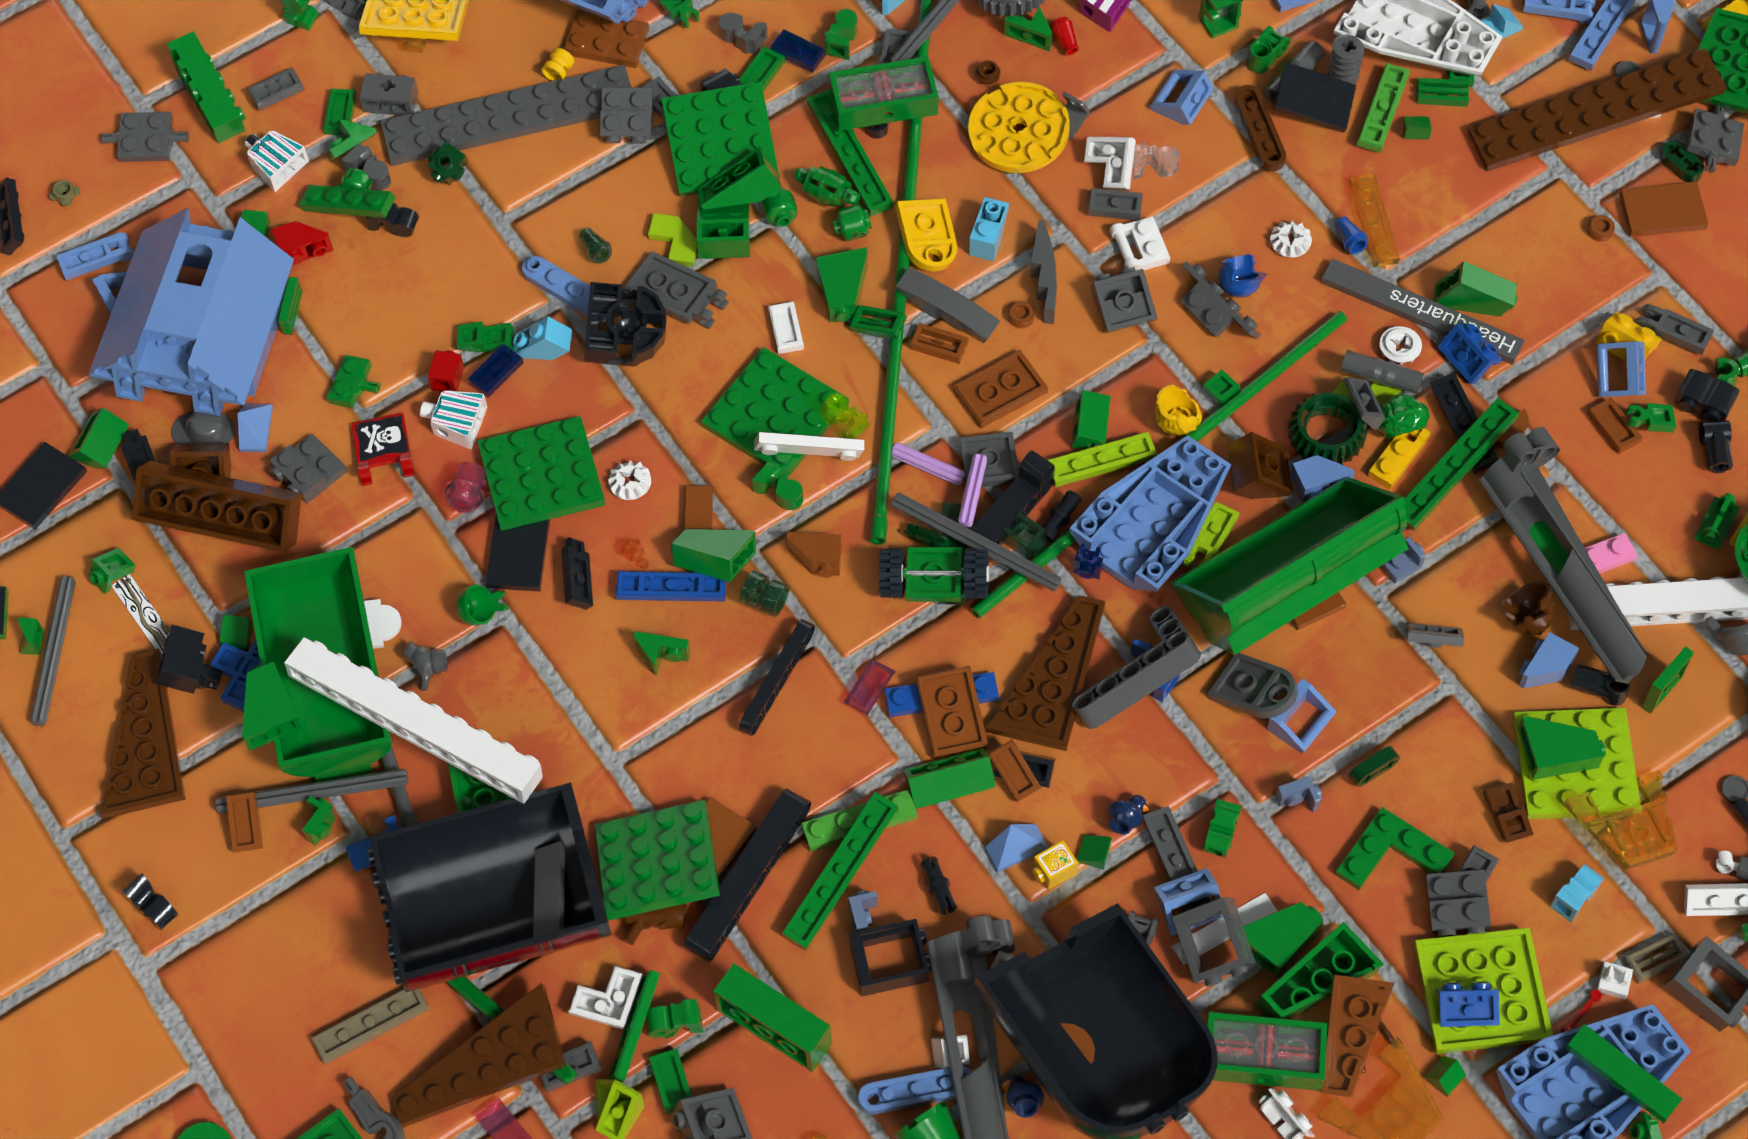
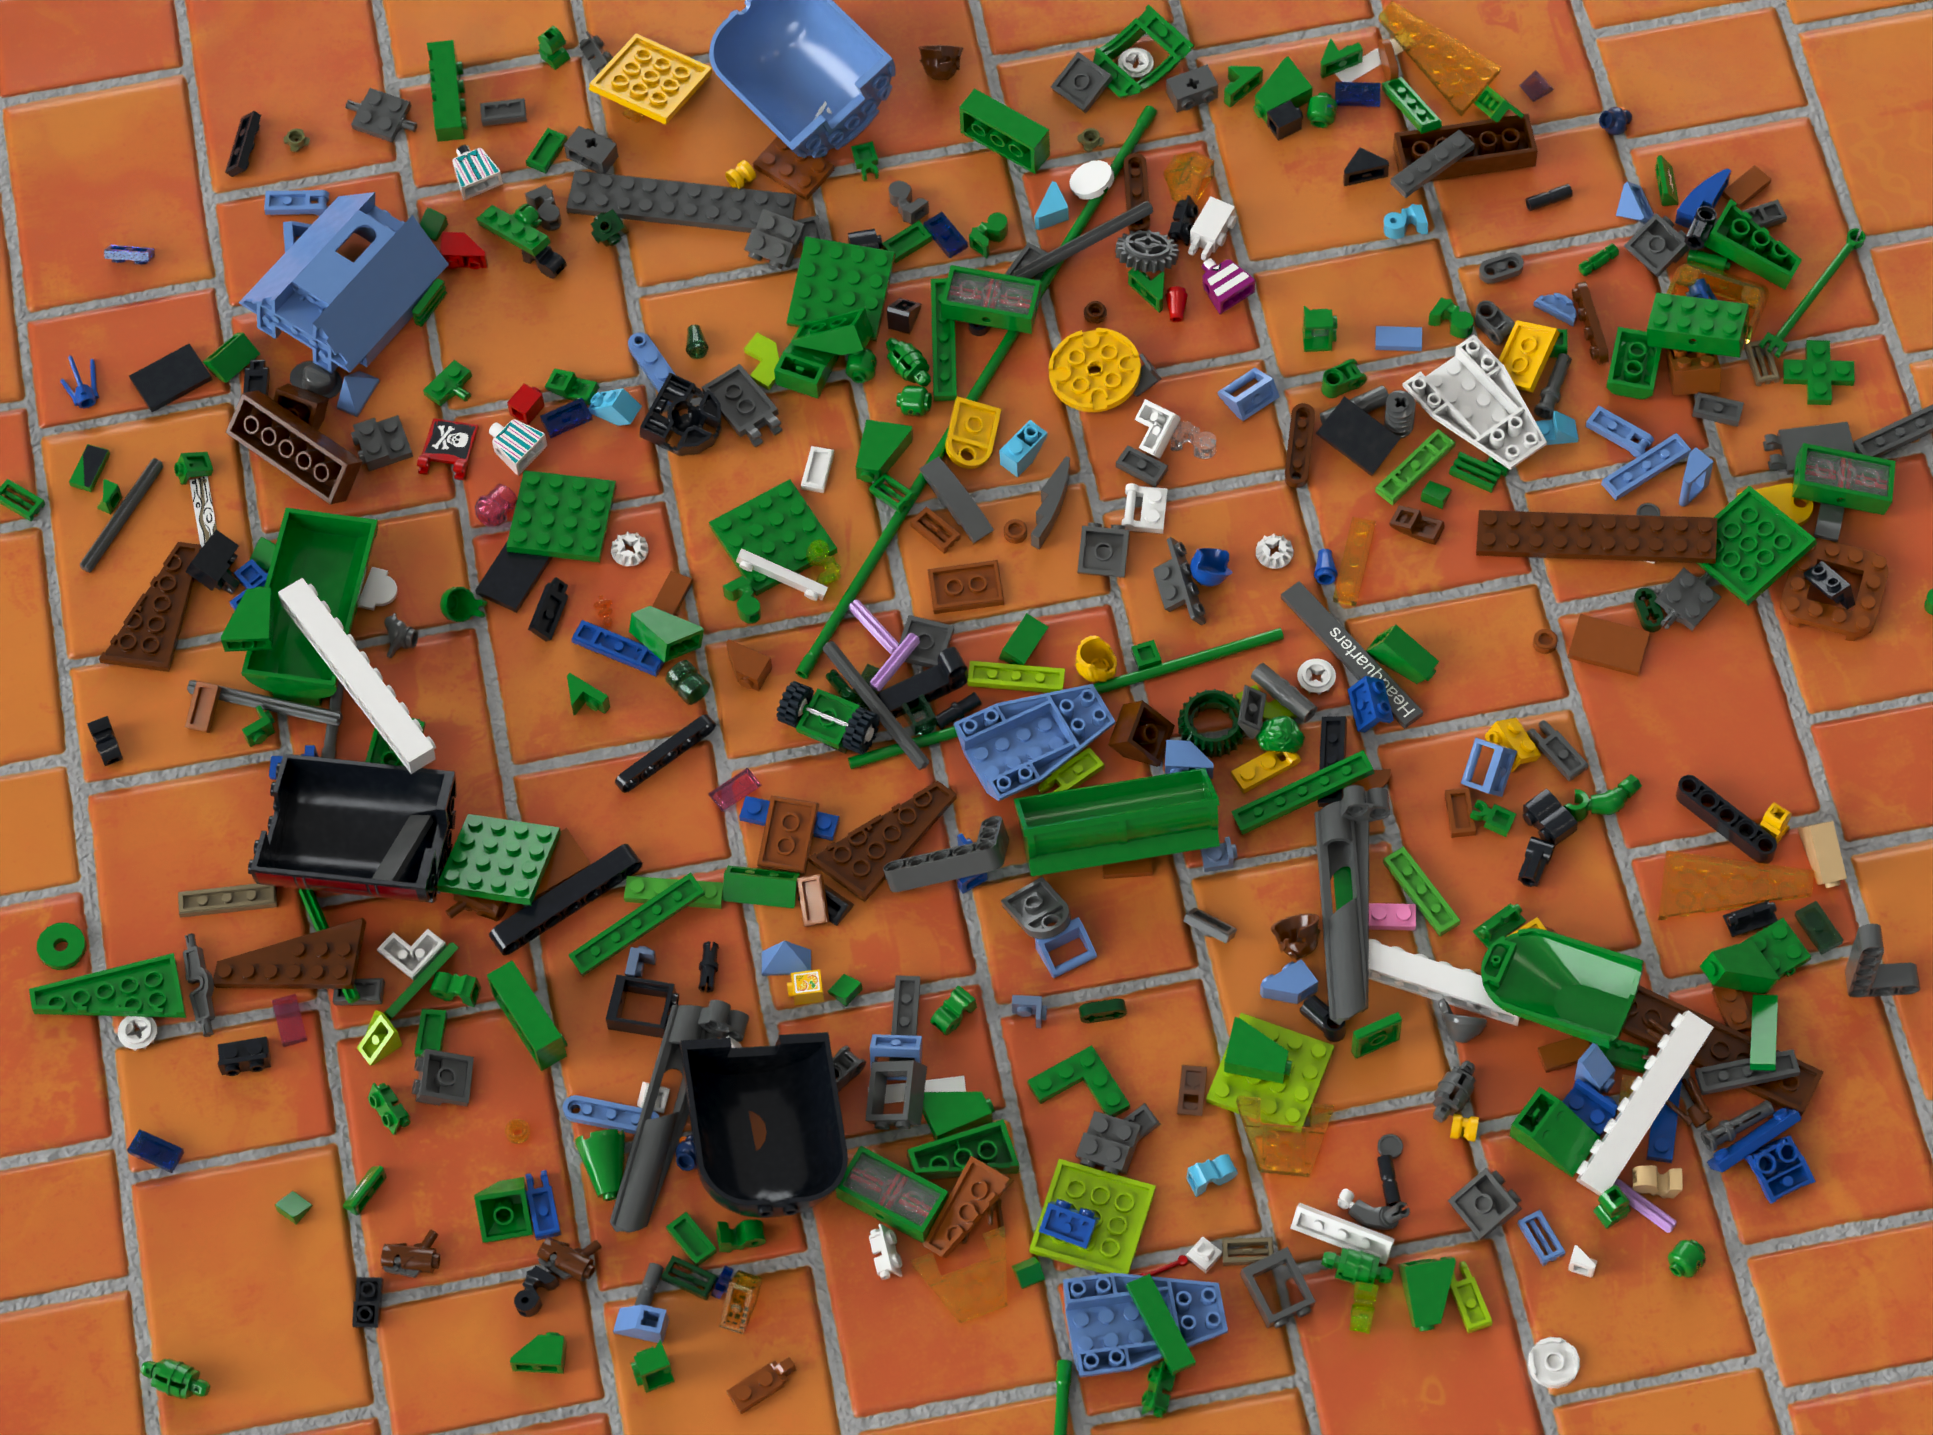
camera: 25 degrees right, 0 degrees up
(354, 135) = (547, 176): green slope -> none
(796, 144) = (902, 315): none -> black slope
(1088, 563) = (957, 758): clear blue plate -> none
(1126, 814) = (883, 971): dark blue animal -> none
(1415, 164) = (1417, 526): none -> reddish brown slope
(1623, 518) = (1421, 891): none -> bright green plate

